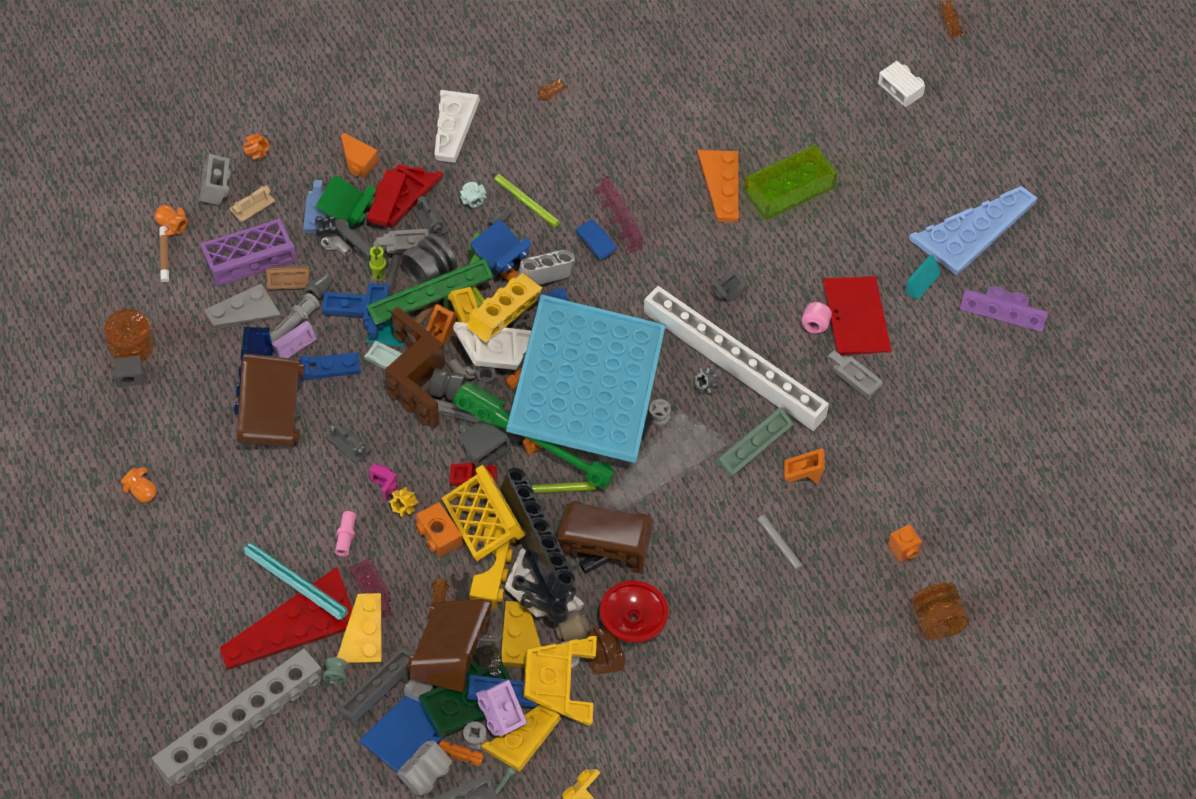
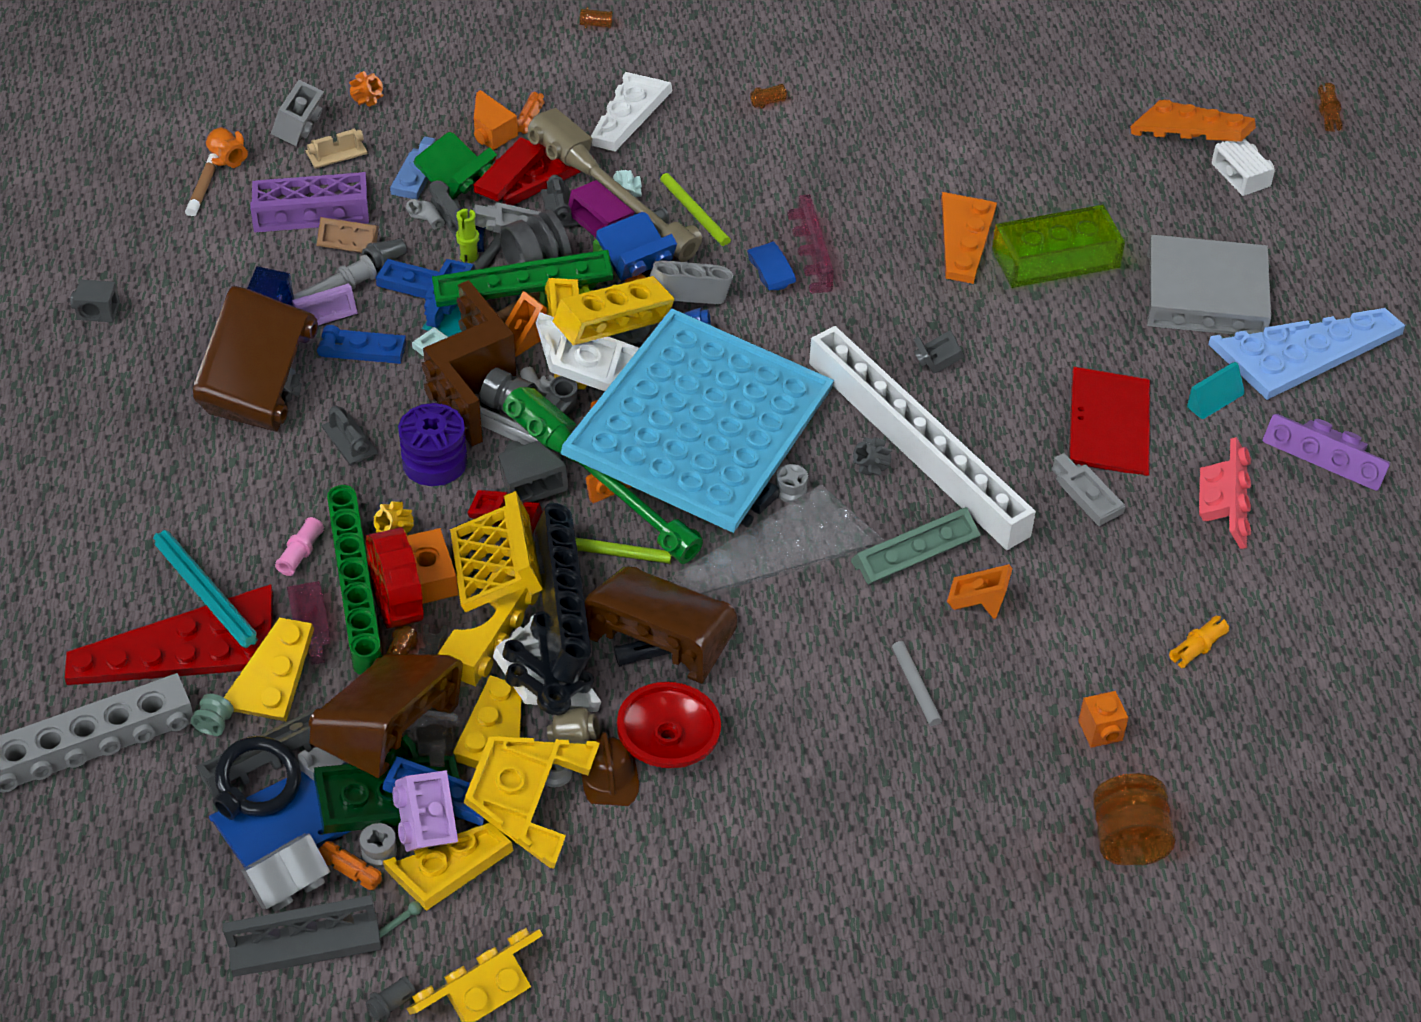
camera: 15 degrees right, 10 degrees down
(128, 334) = (112, 254): clear orange wheel -> none
(140, 487) = (47, 432): orange animal -> none
(242, 308) = (288, 256): light grey wing -> none
(325, 226) = (416, 185): black wheel -> none
(372, 728) = (232, 801): none -> black piece
(381, 139) = (529, 111): none -> orange axle
(385, 478) = (378, 487): dark pink bracket -> none
(392, 559) = (354, 578): none -> green beam
(402, 44) = (595, 18): none -> clear orange pin
(411, 438) = (433, 444): none -> dark purple wheel
(424, 548) = (394, 577): none -> red connector
(426, 170) = (572, 145): none -> dark tan bar
(462, 219) = (596, 207): none -> magenta brick
(816, 317) = (1050, 410): bright pink head -> none
(858, 54) = (1192, 122): none -> orange wing
(899, 192) = (1208, 285): none -> light grey panel
(944, 355) = (1225, 492): none -> coral bracket
(951, 471) = (1199, 641): none -> light orange pin

